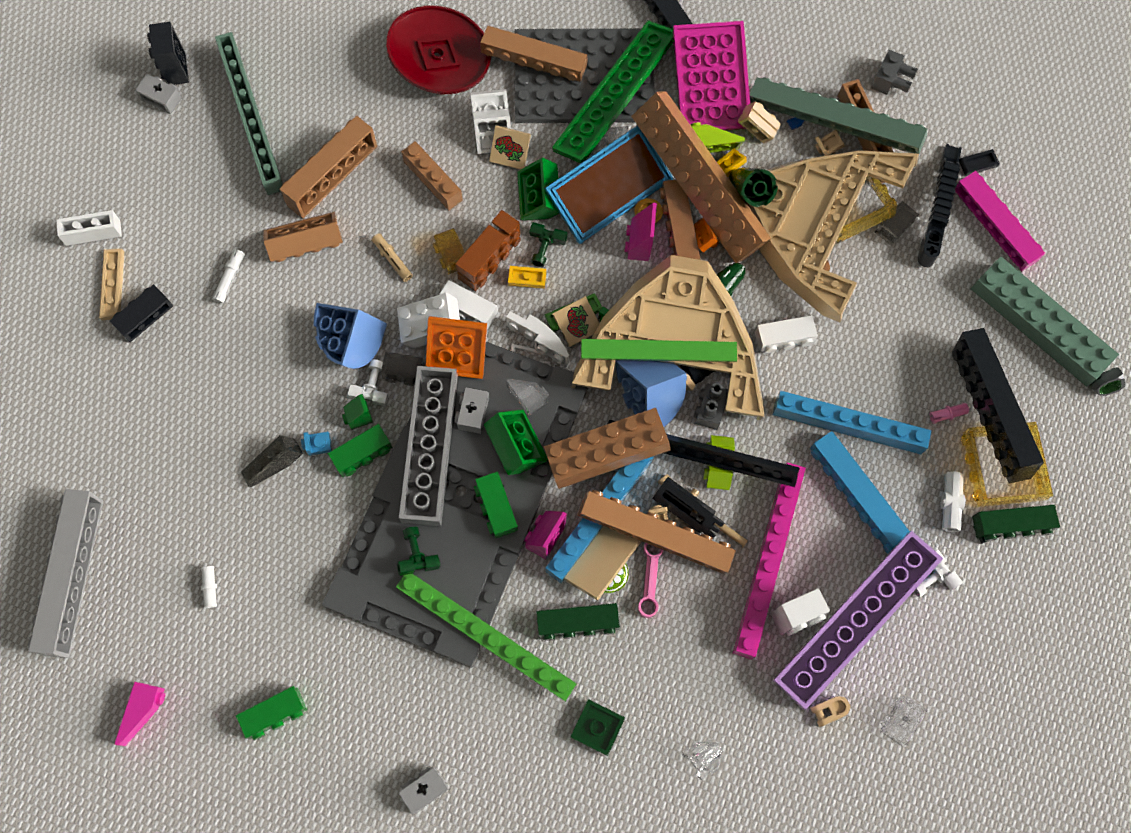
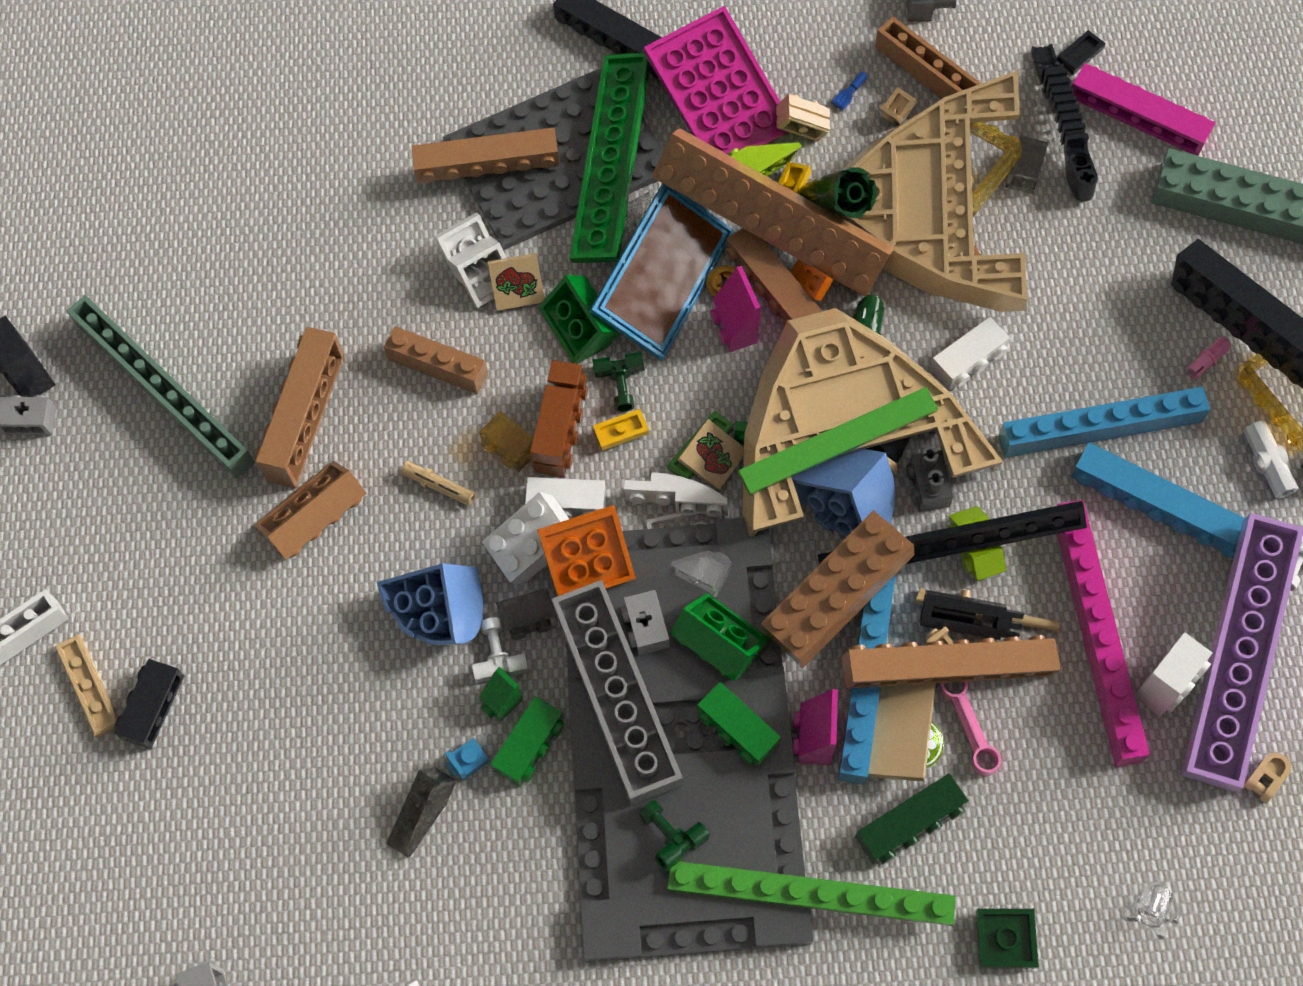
camera: 20 degrees left, 5 degrees down
(232, 268) = (238, 592): white pin -> none
(440, 30) = (351, 177): dark red dish -> none
(839, 116) = (894, 68): sand green brick -> none

